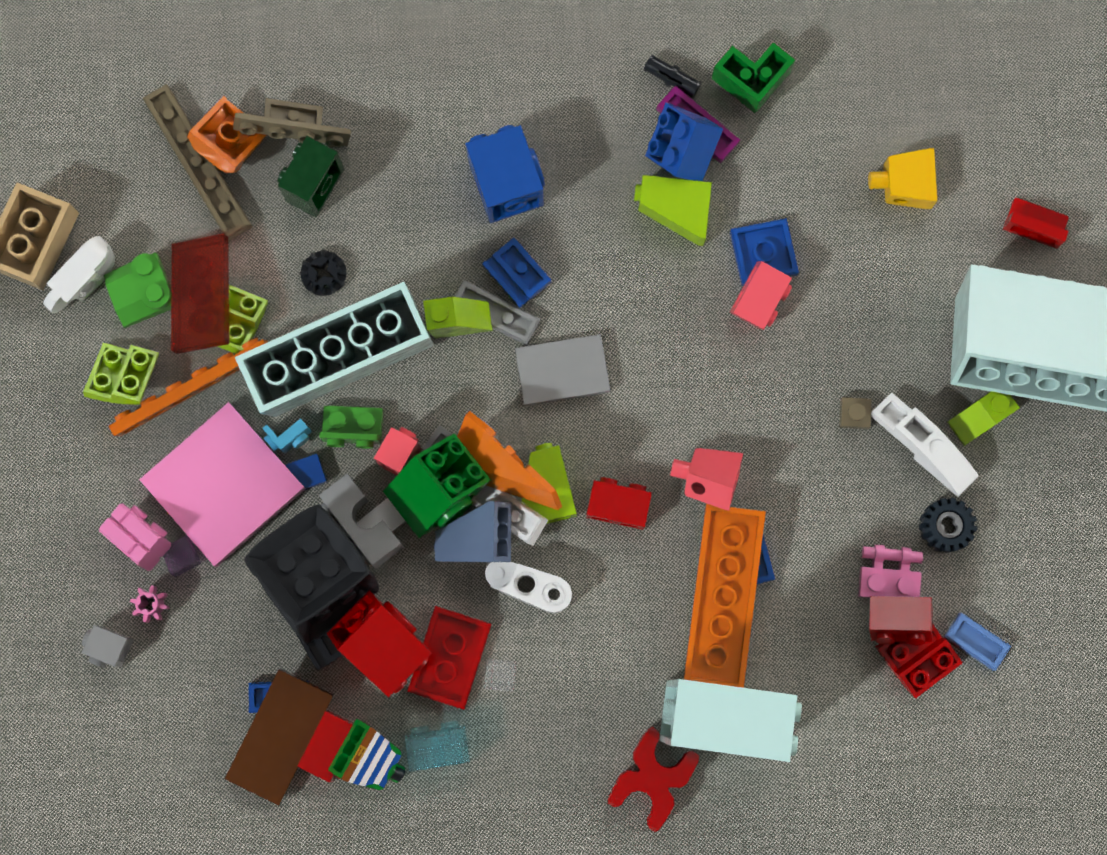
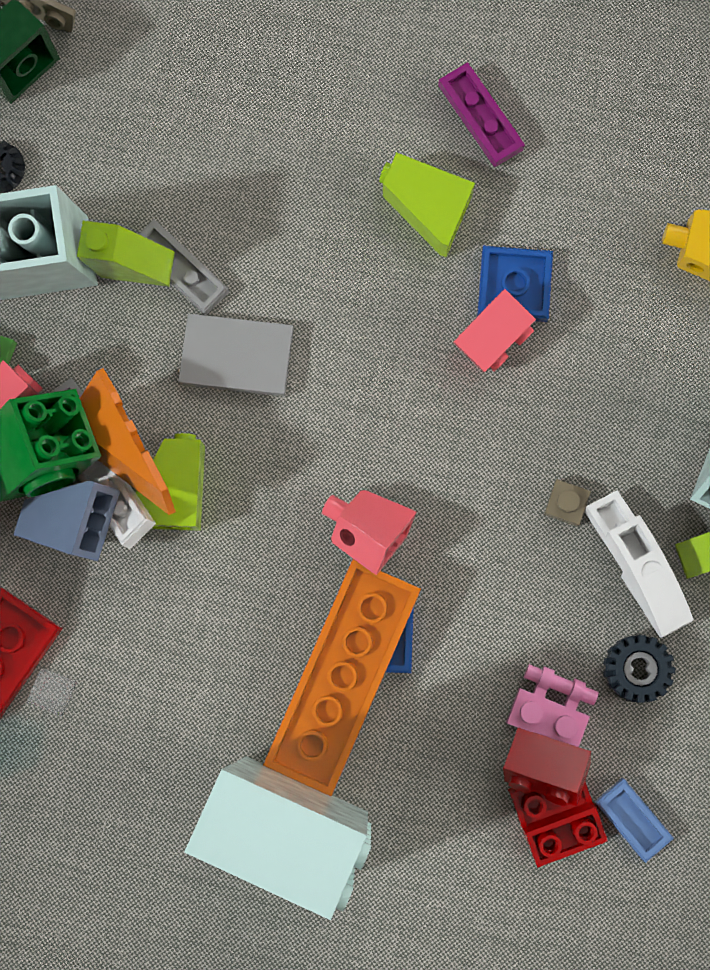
camera: 20 degrees right, 0 degrees up
(505, 579) = (92, 581): white piece -> none
(506, 173) = (236, 107): blue brick -> none
(516, 272) = (217, 227): blue plate -> none
(618, 503) = (251, 529): red brick -> none
(653, 779) = (188, 875): red piece -> none
(672, 75) = (468, 51): black pin -> none
(683, 142) = (456, 128): blue slope -> none
(752, 81) = (561, 80): green brick -> none

